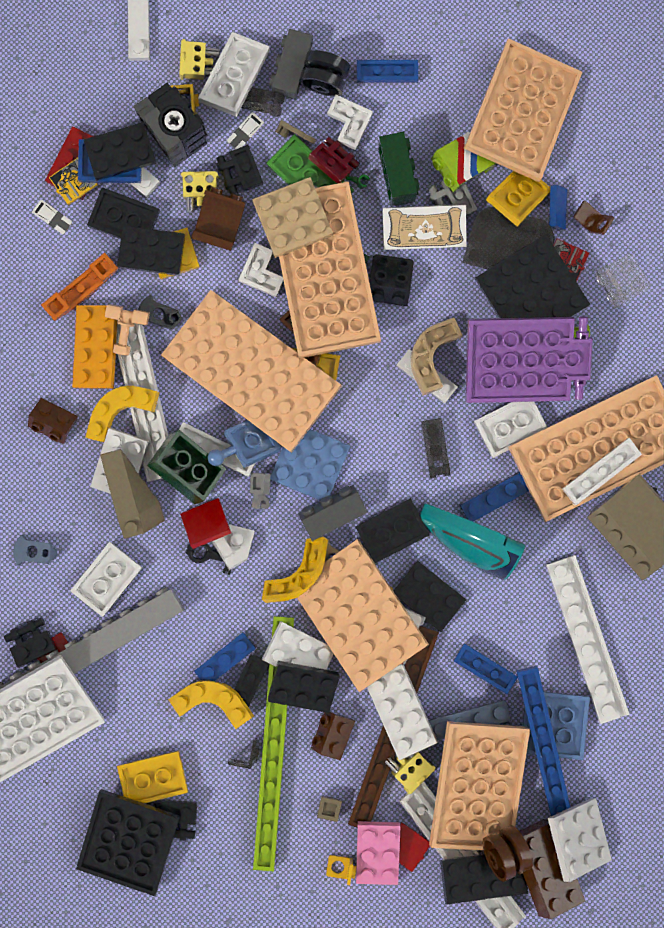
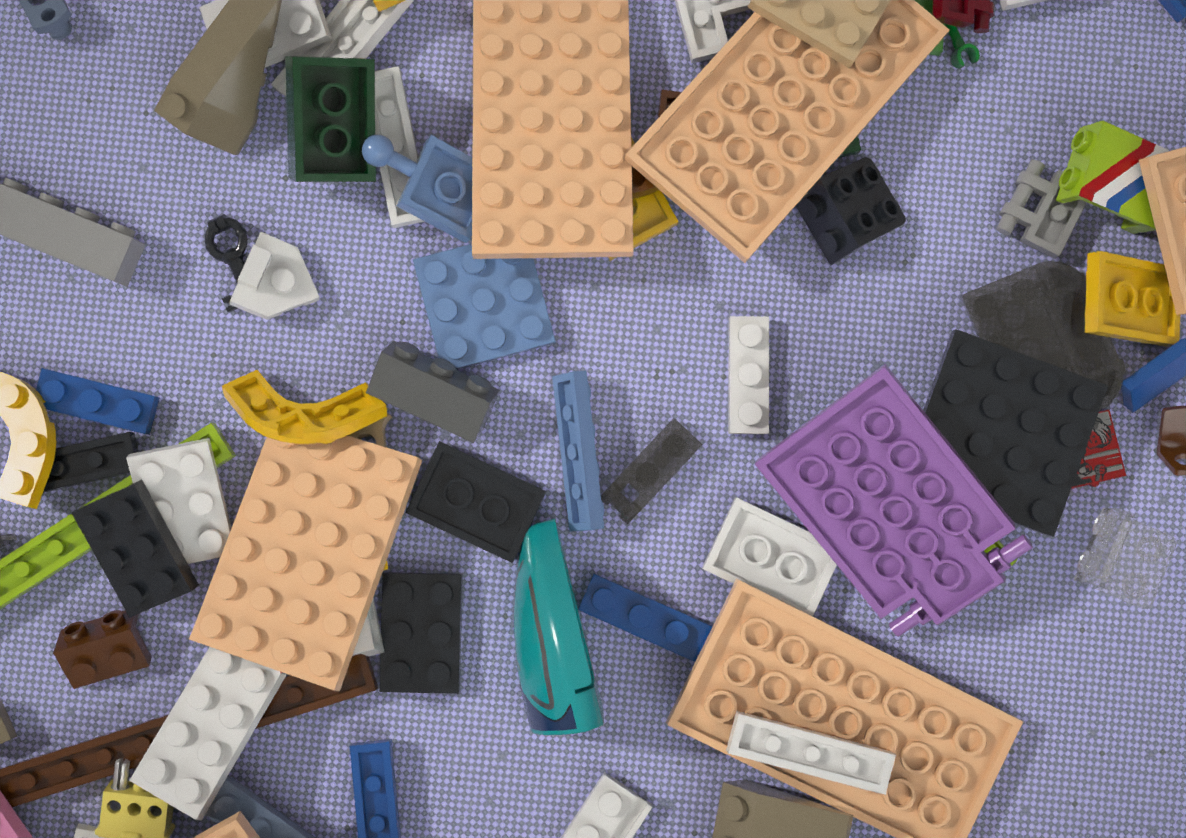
camera: 55 degrees right, 0 degrees up
(106, 579) = (80, 135): white plate -> none
(205, 523) = (271, 215): red tile -> none
(260, 488) = (388, 255): light grey plate -> none
(398, 168) = (1028, 88): dark green brick -> none
(404, 472) = (578, 451): none -> medium blue plate
(423, 353) = (786, 338): tan plate -> none
(424, 227) = (970, 197): tile -> none

